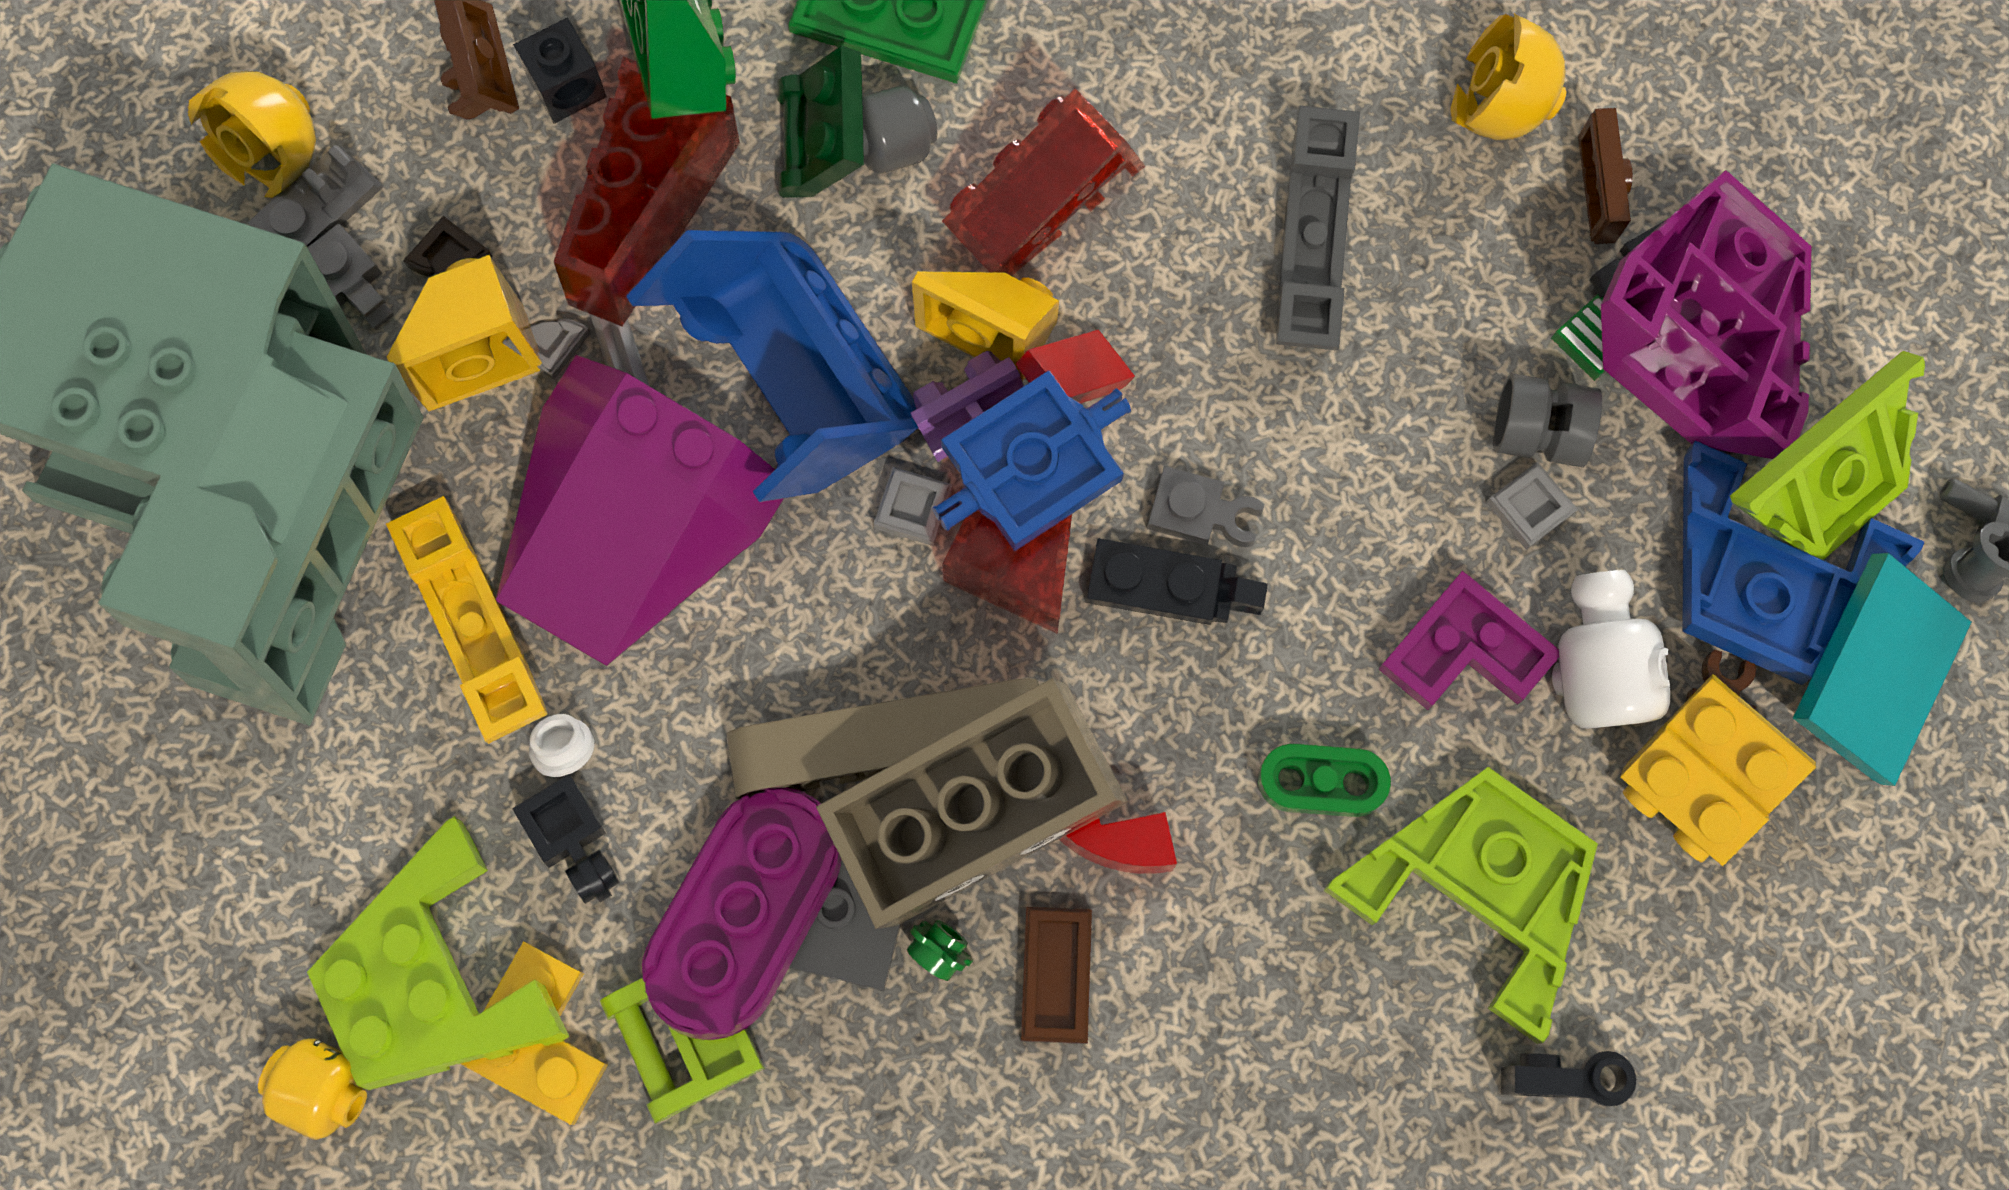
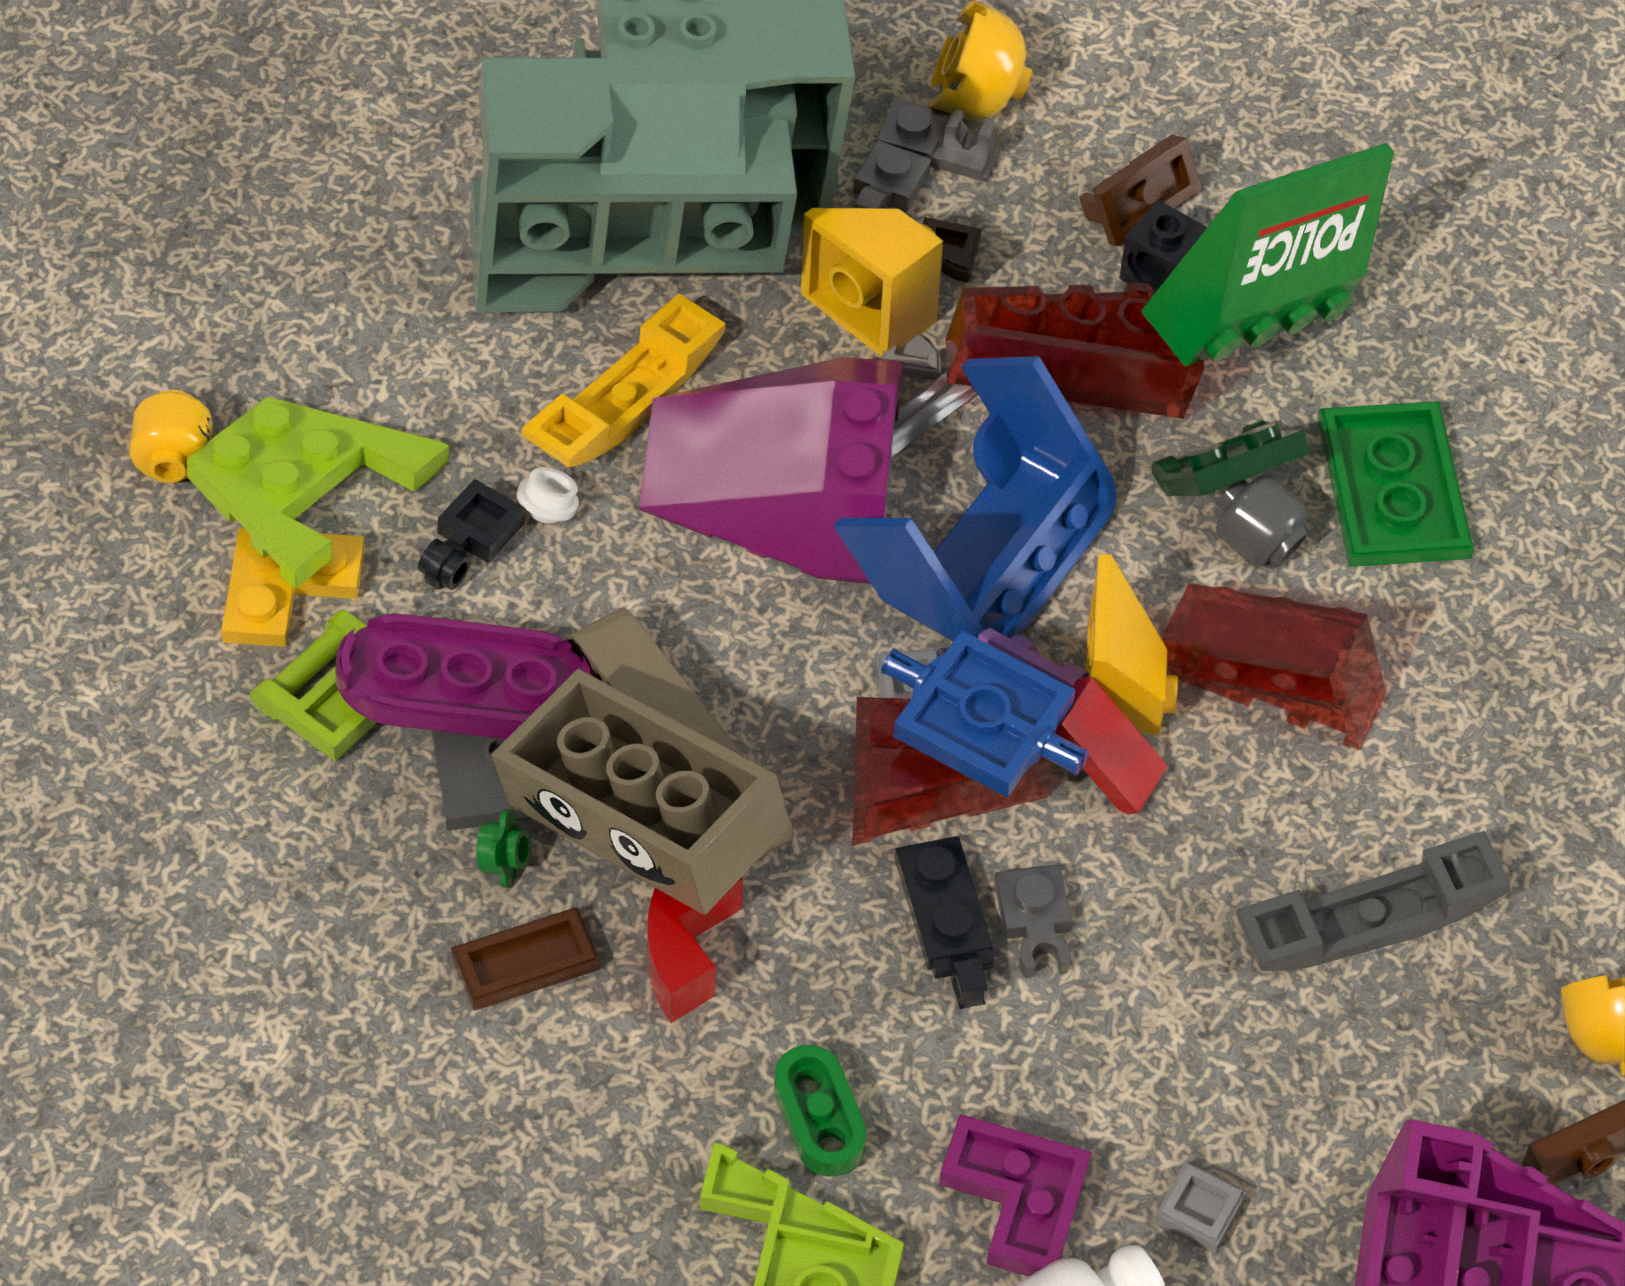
camera: 65 degrees right, 20 degrees down
(1525, 417) = (1288, 1165): dark grey wheel -> none

